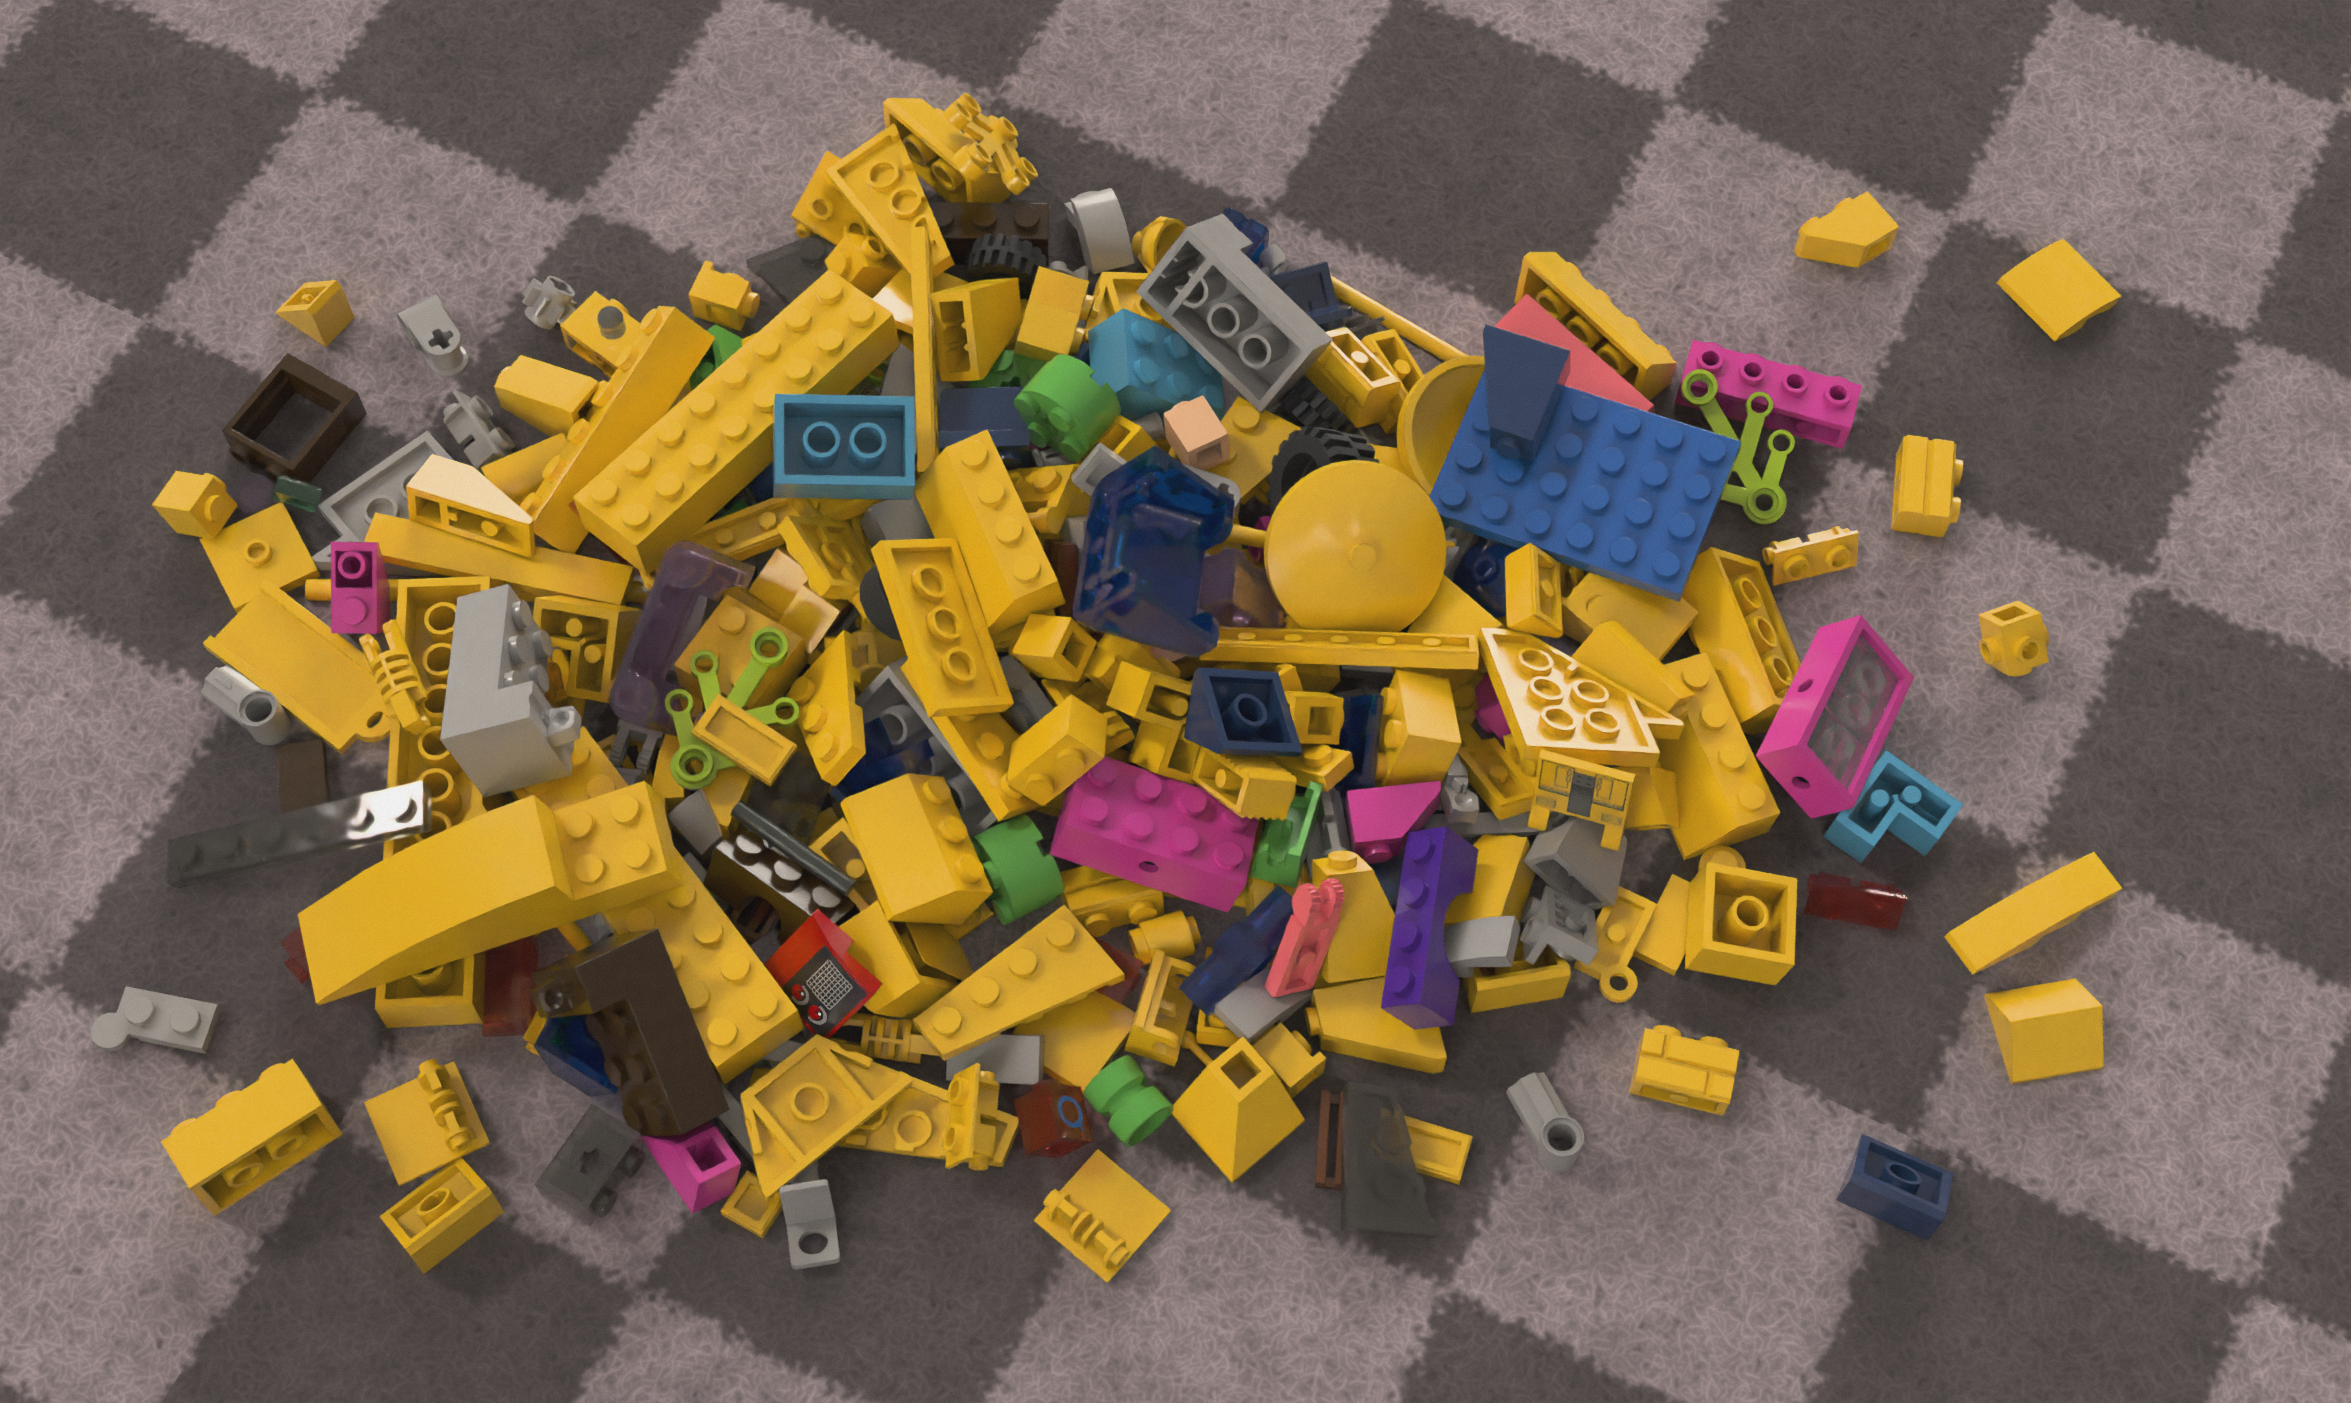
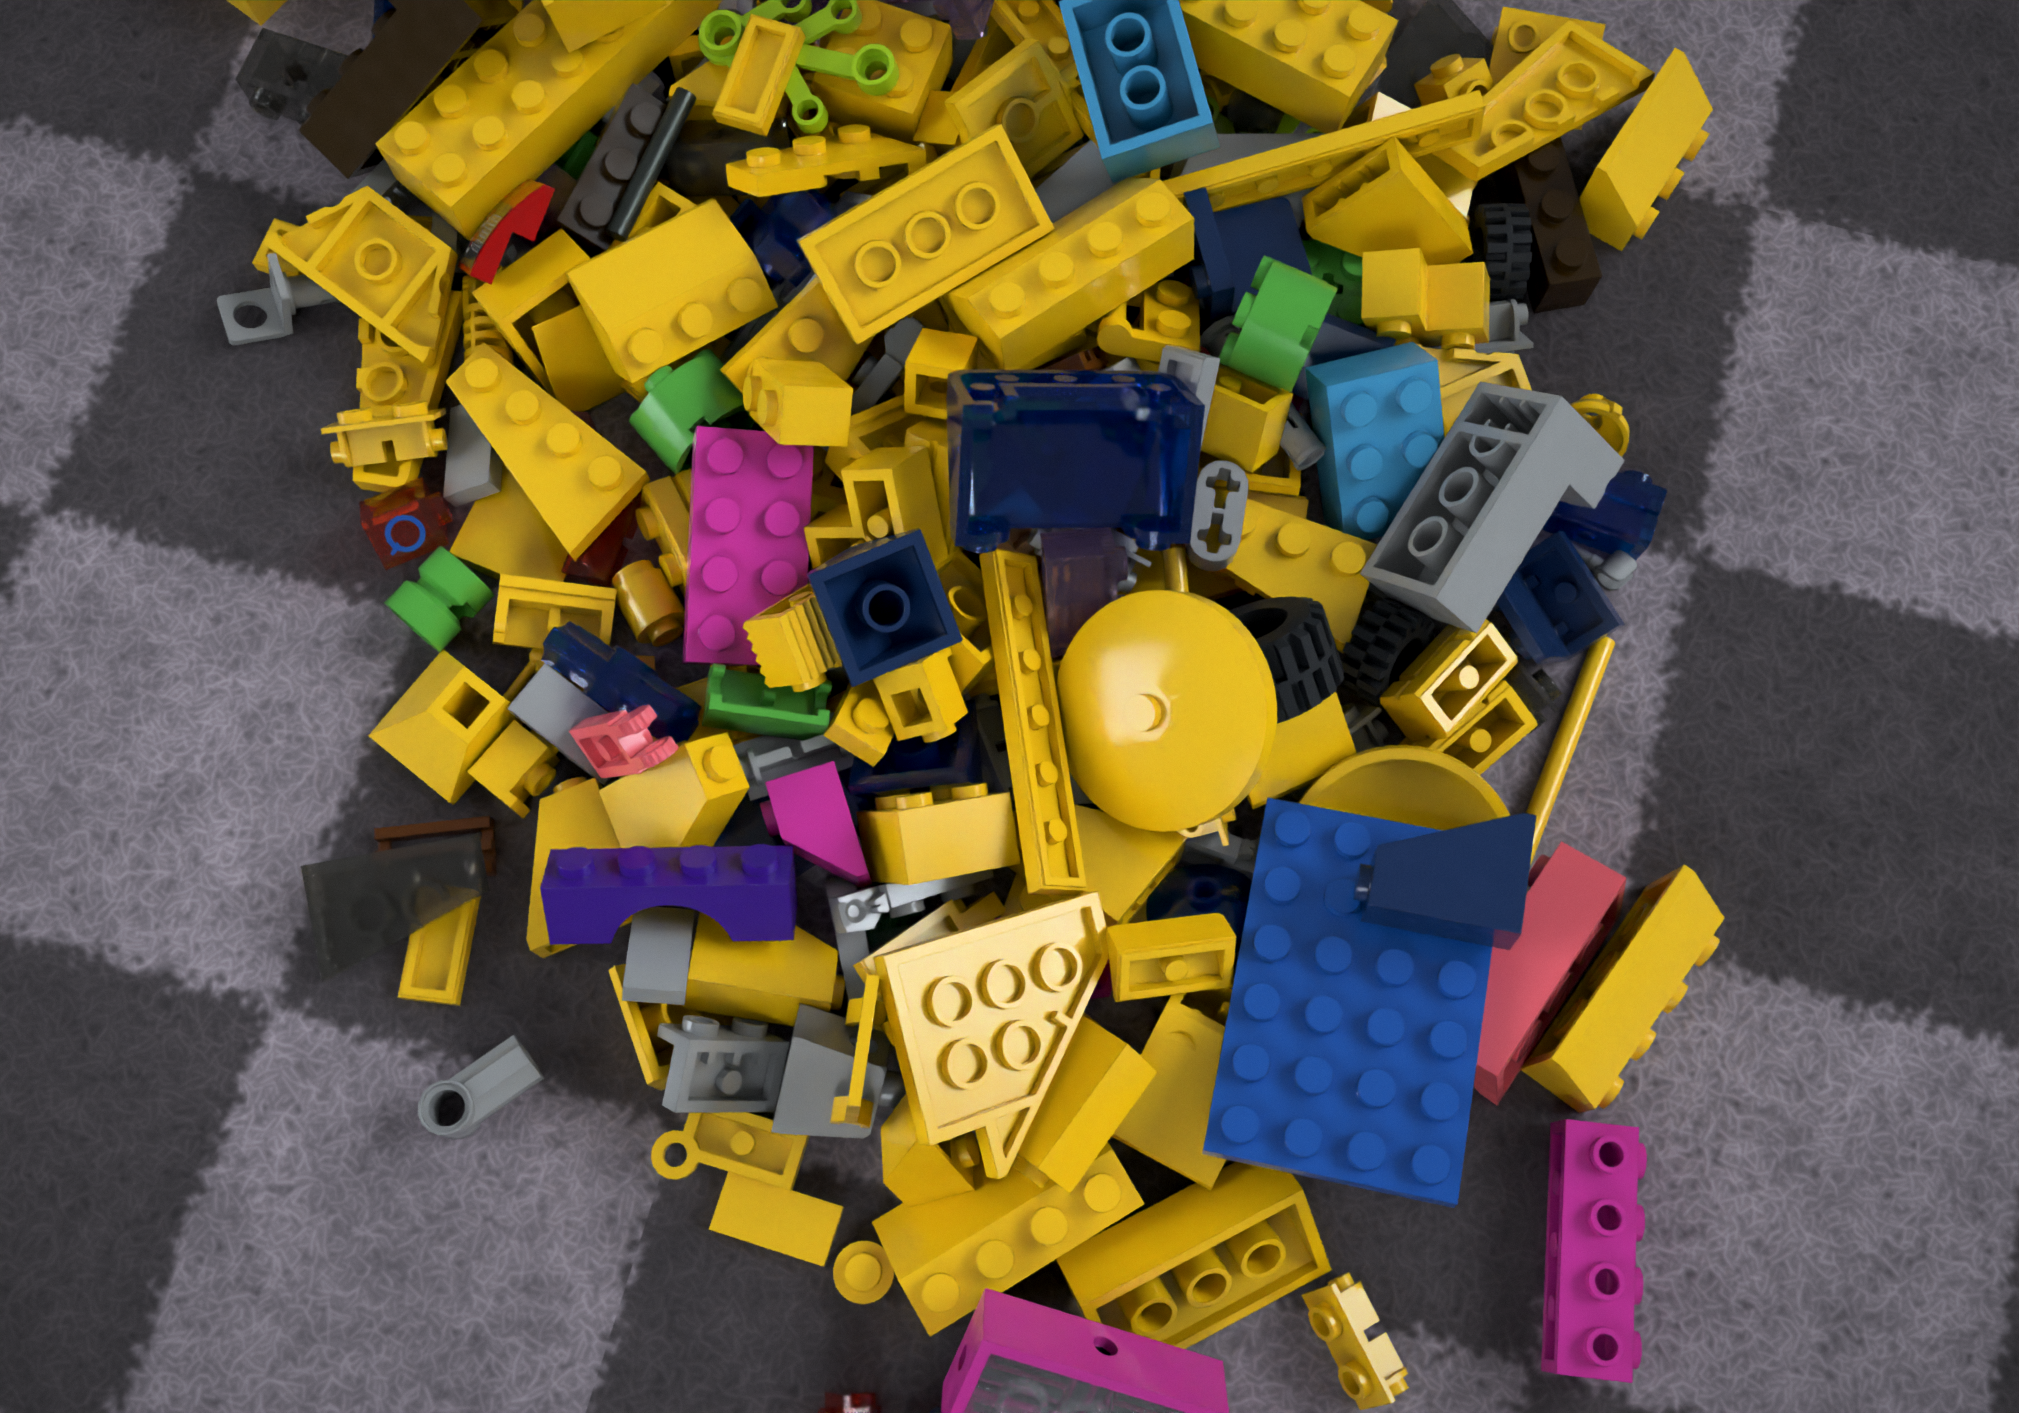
camera: 80 degrees right, 10 degrees up
(697, 1164) = (304, 180): dark pink slope -> none
(996, 139) = (1694, 212): yellow plant -> none
(1100, 230) = (1590, 349): light grey brick -> none
(1101, 1215) = (313, 602): yellow hinge -> none
(1196, 434) = (1294, 494): light nougat brick -> none
(1684, 1070) = (570, 1256): yellow brick -> none
(1741, 923) = (769, 1305): yellow brick -> none
(1750, 436) = (1478, 1217): lime plant -> none
(1849, 234) = (1890, 1340): yellow slope -> none

